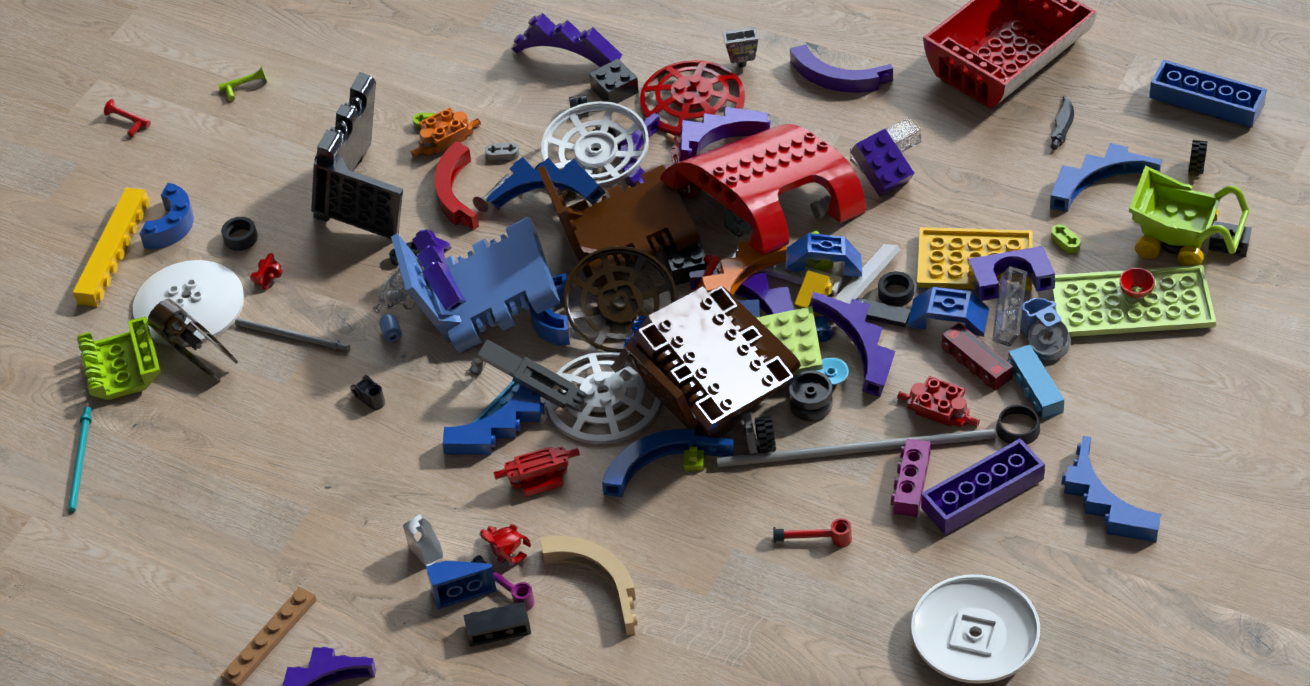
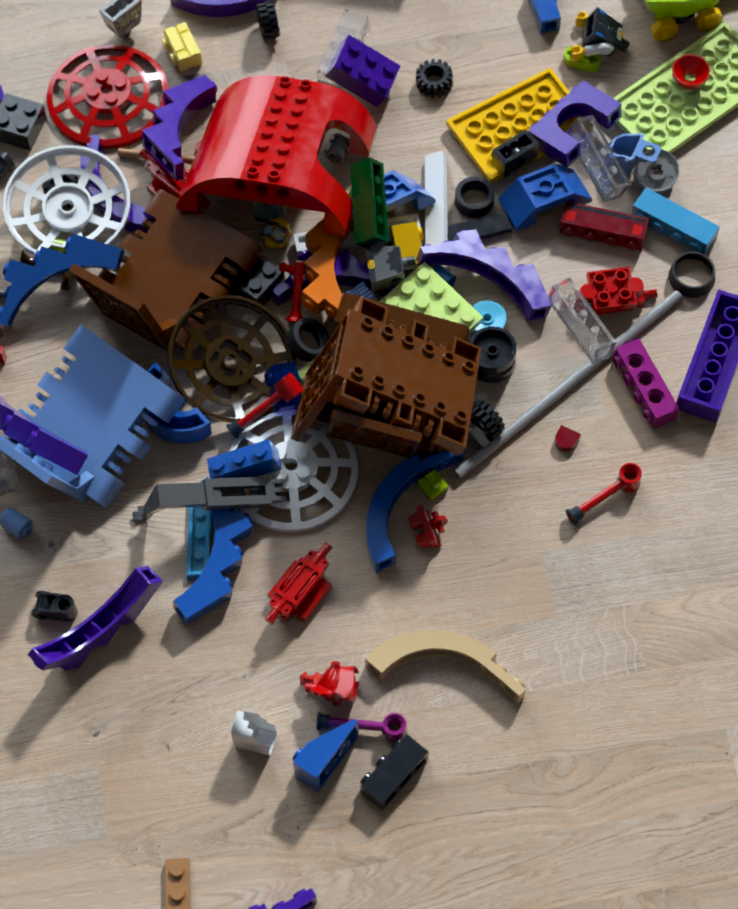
camera: 40 degrees left, 15 degrees up
(381, 419) = (98, 629): none -> dark purple arch
(575, 368) = (246, 461): none -> blue brick
(588, 347) = (286, 389): none -> red piece
(665, 483) = (423, 519): none -> red hips
(727, 239) = (276, 233): none -> head
(769, 90) = (182, 47): none -> light yellow brick
(780, 295) = (387, 266): none -> dark grey torso
(799, 243) = (369, 203): none -> dark green brick
(819, 483) = (566, 438): none -> dark red tile
(845, 99) = (267, 20): none -> black tyre
(895, 405) = (581, 321): none -> clear brick
(937, 204) = (437, 87): none -> black tyre
(945, 269) = (515, 153): none -> black brick
(1089, 227) = (600, 35): none -> torso

